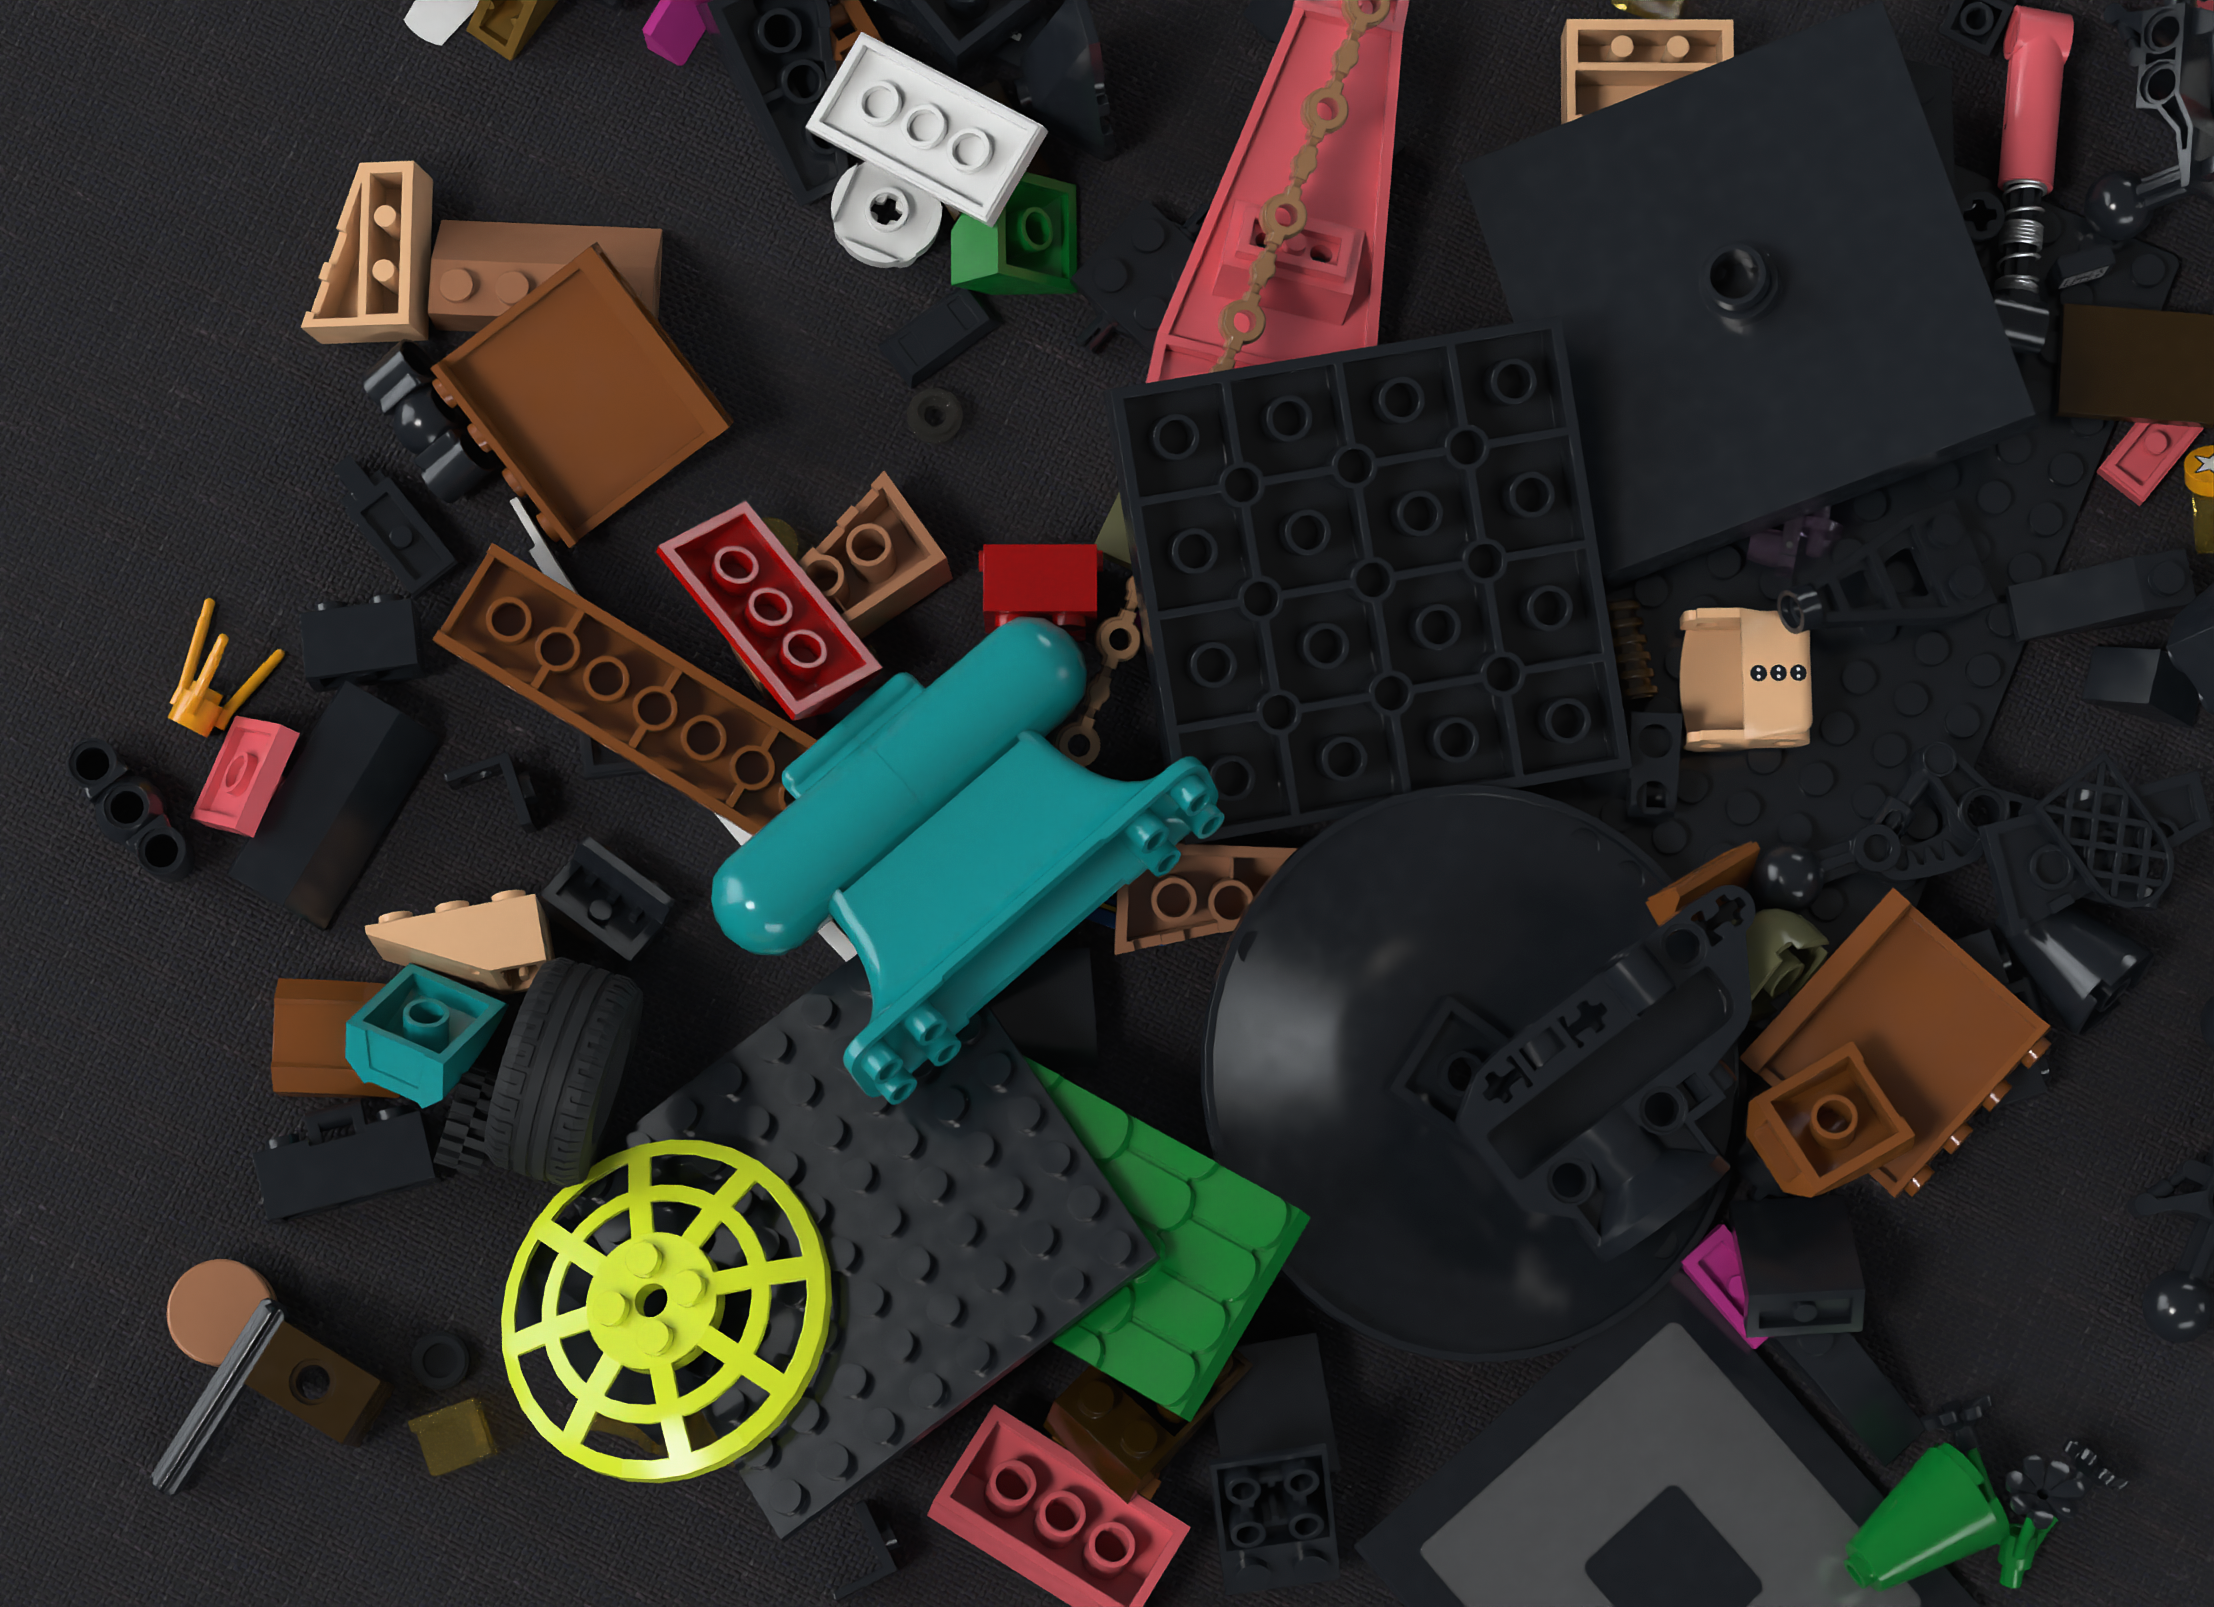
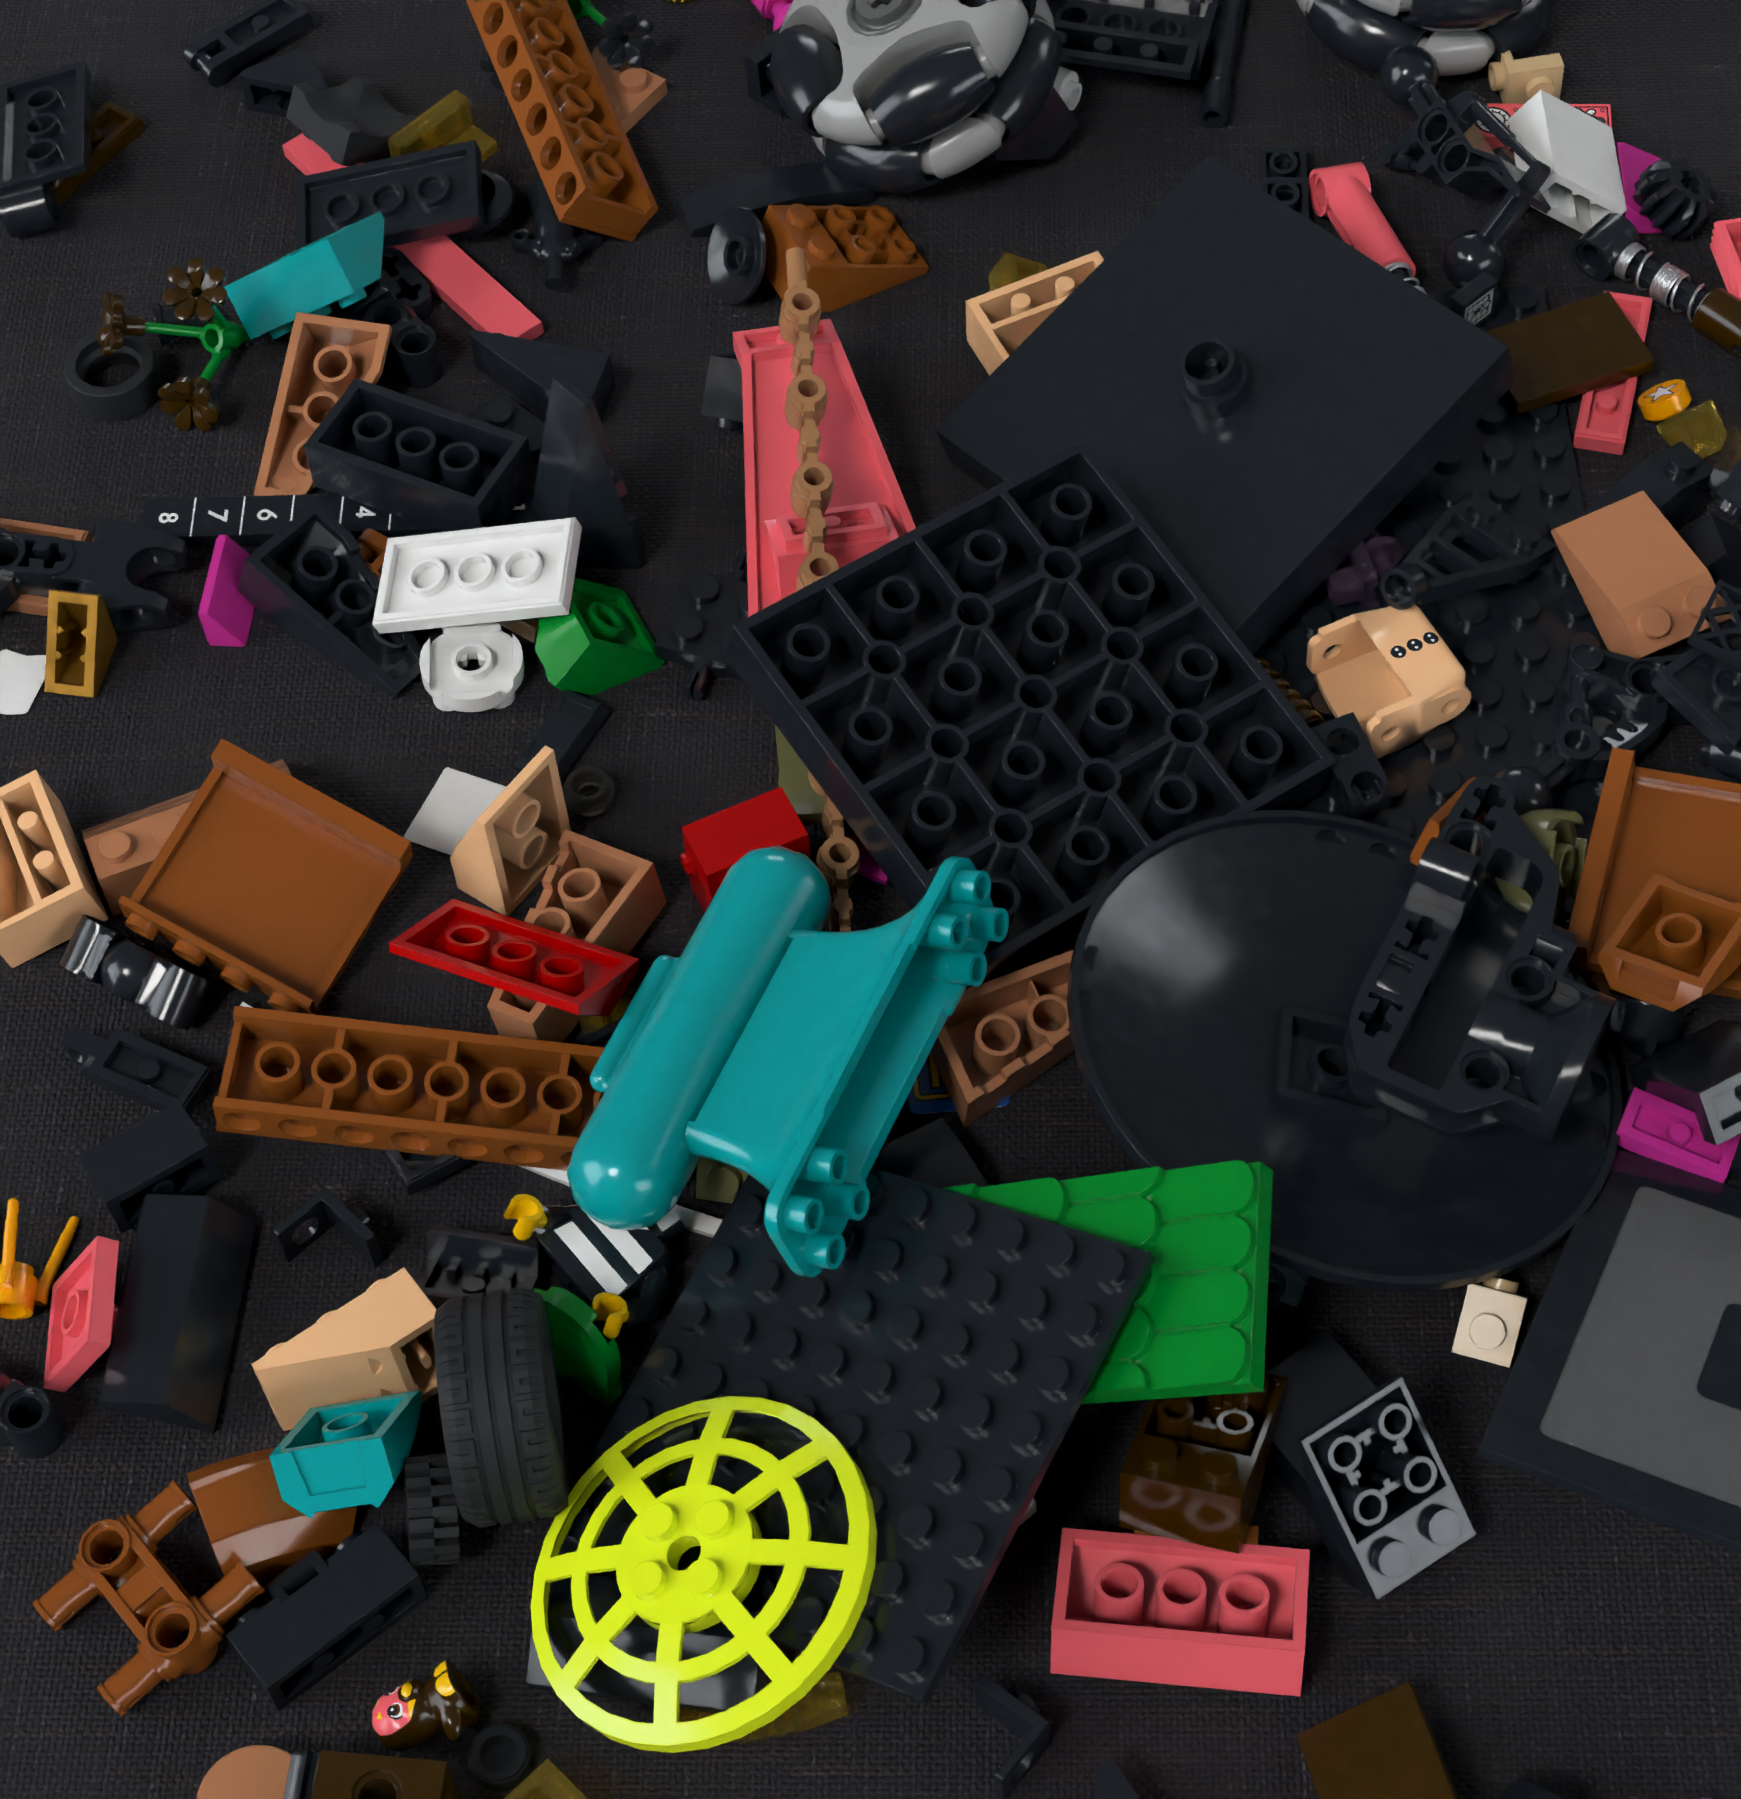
camera: 20 degrees left, 25 degrees down
(203, 1077) = (148, 1597): none -> dark orange piece
(387, 1291) = (418, 1708): none -> dark brown animal
(661, 1016) = (580, 1348): none -> green tile
(724, 976) = (610, 1269): none -> torso
(810, 379) = (451, 810): none -> white sticker
(833, 450) = (514, 838): none -> light nougat slope
(1469, 1387) = (1490, 1321): none -> tan bracket
(2047, 686) = (1637, 577): none -> nougat slope

